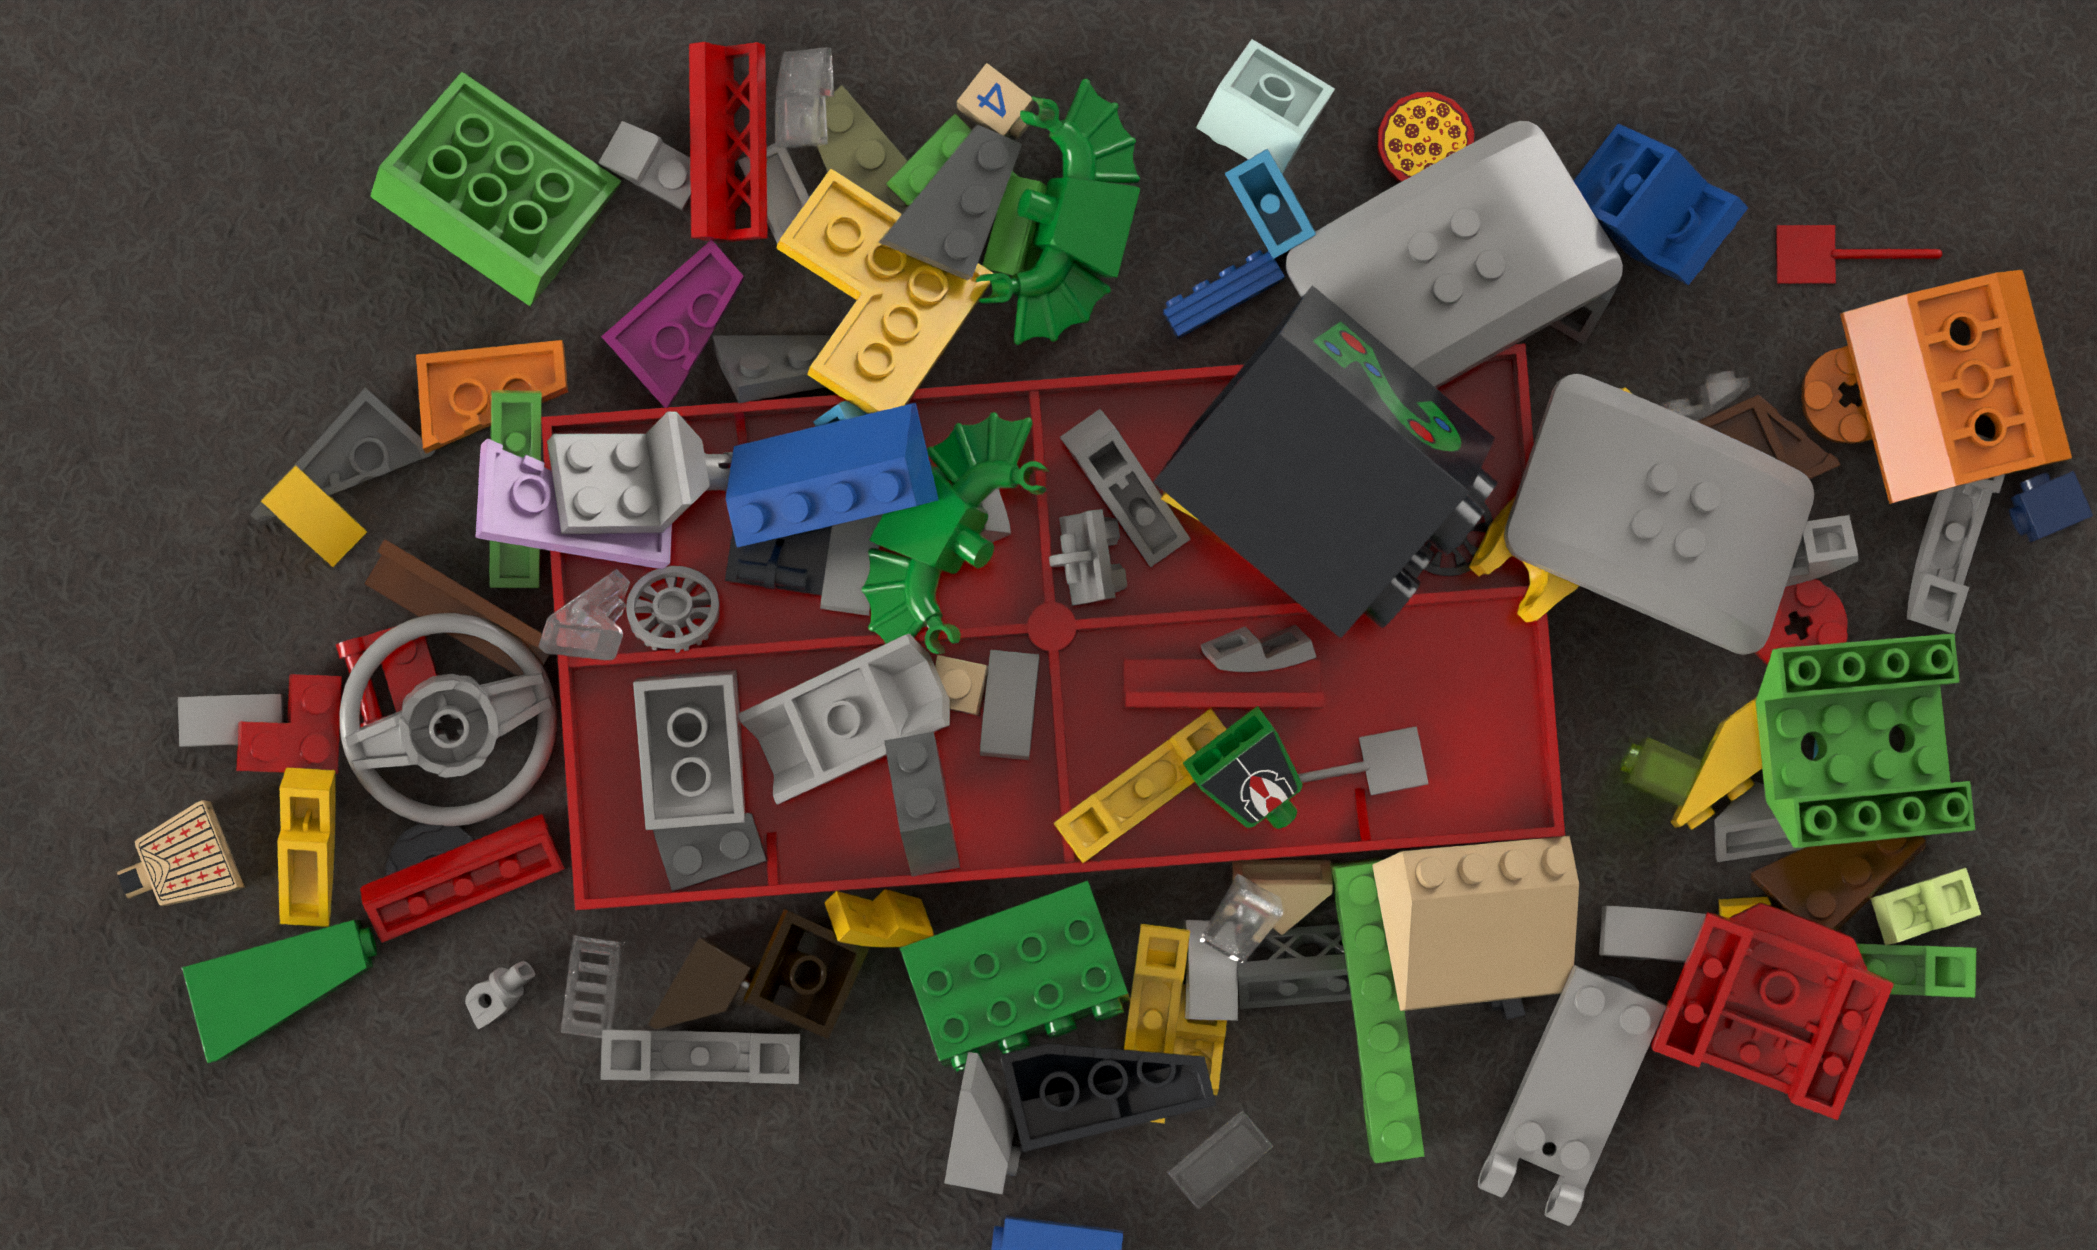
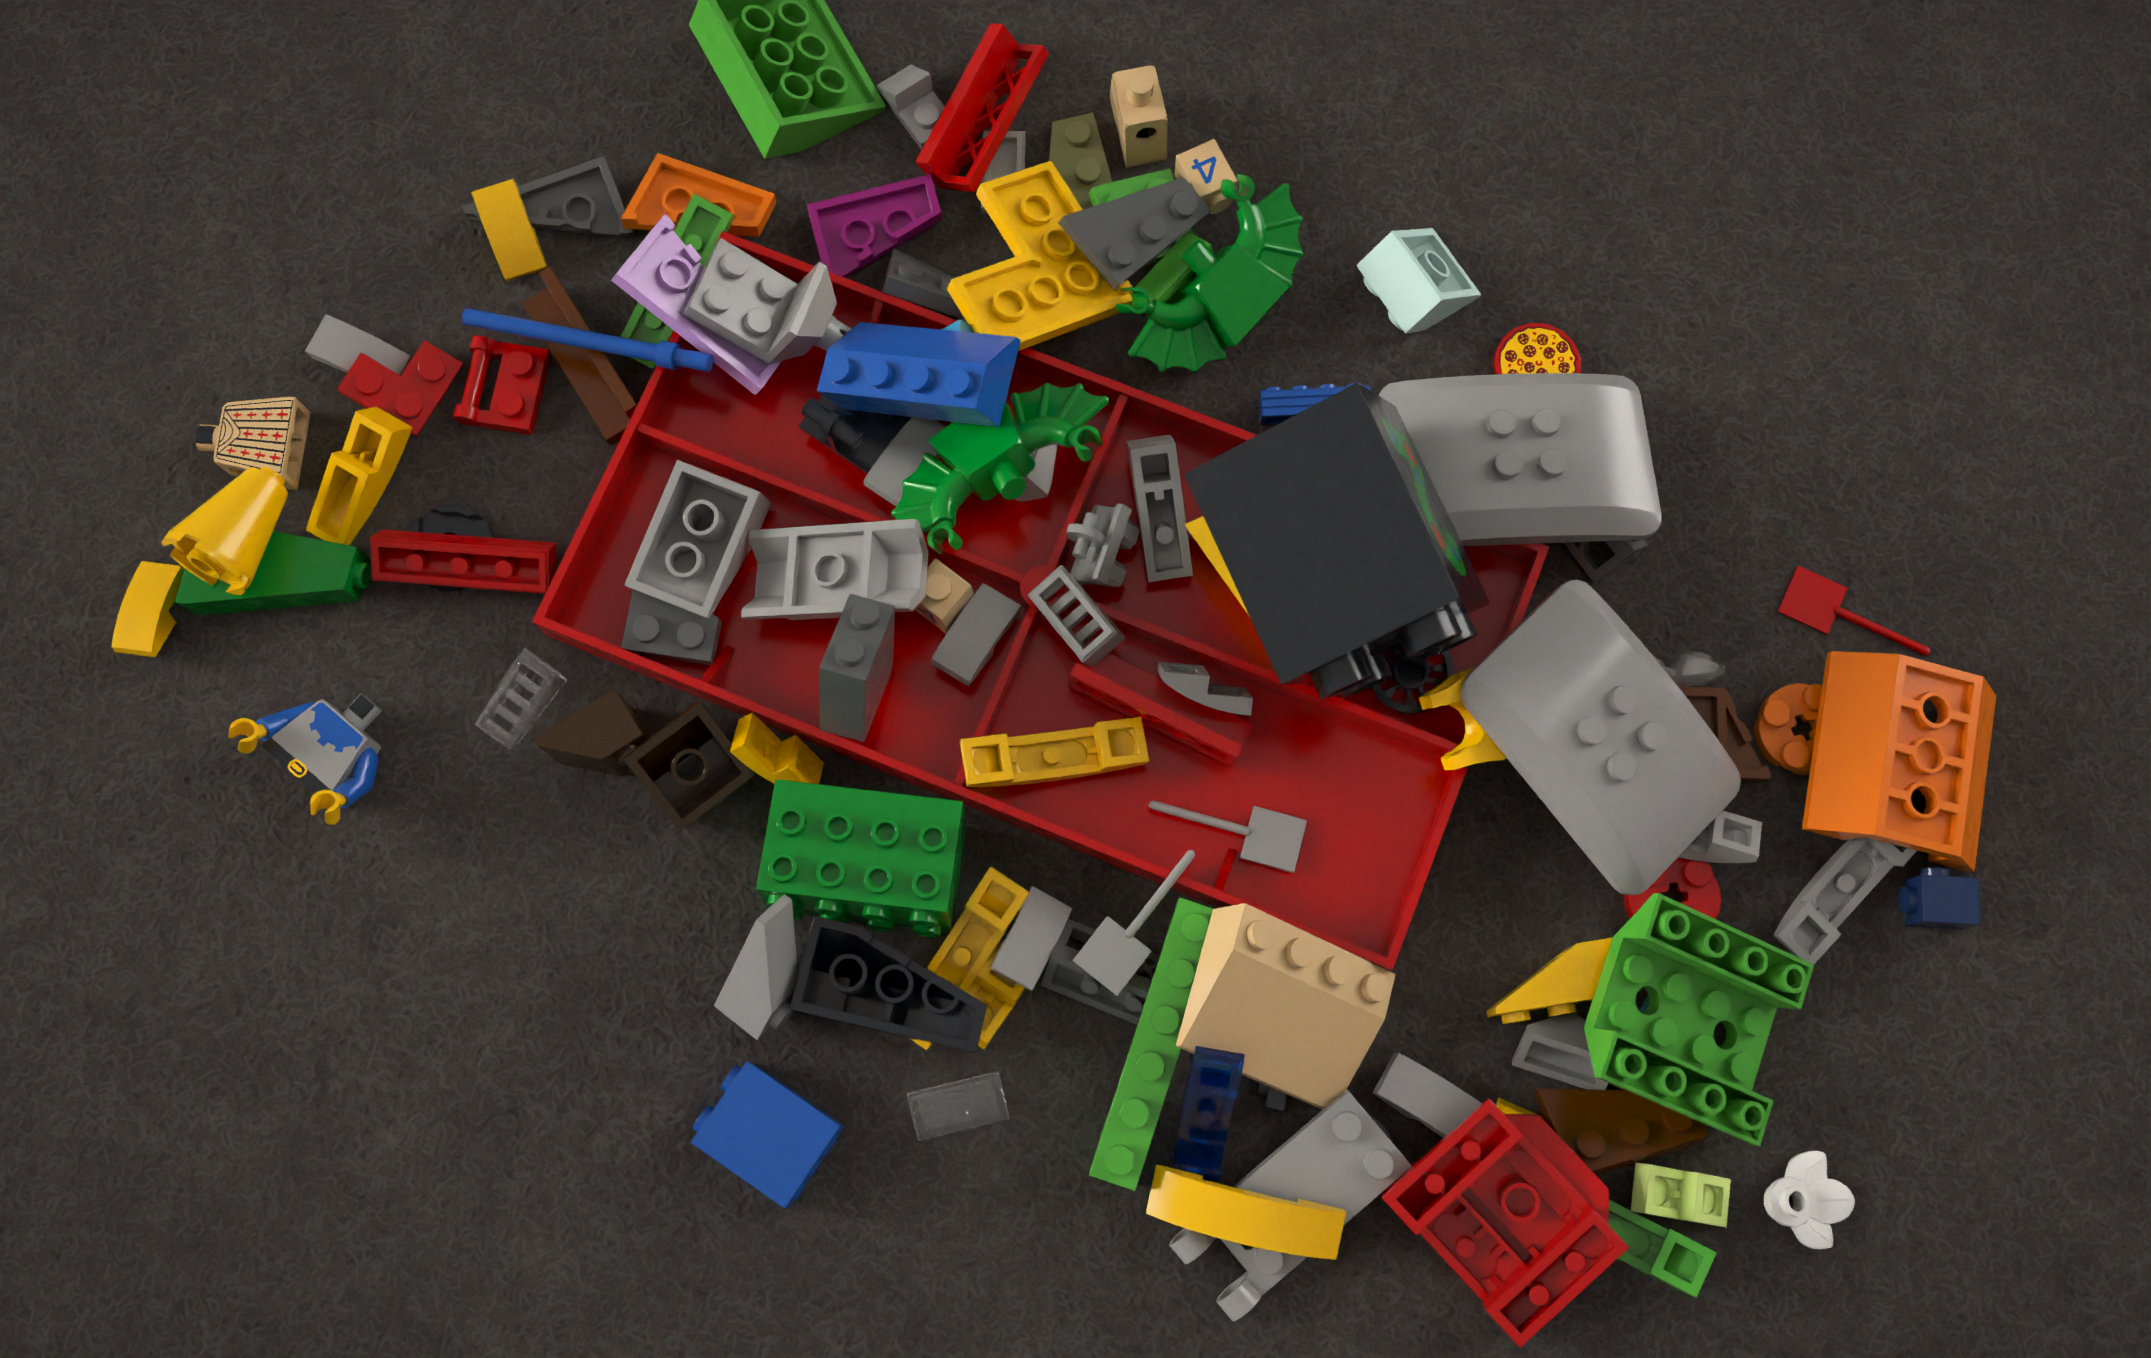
camera: 25 degrees right, 10 degrees down
(174, 1080) = (144, 612): none -> yellow slope
(234, 967) = (230, 530): none -> yellow cone
(432, 1131) = (321, 749): none -> torso
(484, 709) = (546, 436): light grey piece -> none
(505, 990) = (447, 664): light grey piece -> none
(560, 578) = (664, 354): none -> blue bar
(588, 622) = (668, 395): clear slope -> none
(673, 608) = (744, 425): light grey wheel -> none
(700, 1056) = (570, 797): light grey slope -> none
(800, 98) = (1054, 105): clear slope -> none
(895, 72) = (1135, 106): none -> tan torso
(1111, 667) = (1103, 643): none -> light grey slope
(1242, 919) = (1077, 905): clear slope -> none
(1248, 772) = (1146, 781): torso -> none
(1270, 203) = (1388, 341): dark azure slope -> none
(1297, 882) = (1124, 896): tan slope -> none
(1298, 948) = (1114, 953): none -> light grey piece
(1459, 1067) = (1207, 1111): none -> clear blue slope
(1535, 1128) = (1245, 1216): none -> yellow slope
(1657, 204) = (1712, 495): blue bracket -> none
(1659, 771) = (1498, 960): clear neon green brick -> none
(2052, 848) = (1815, 1200): none -> white plate

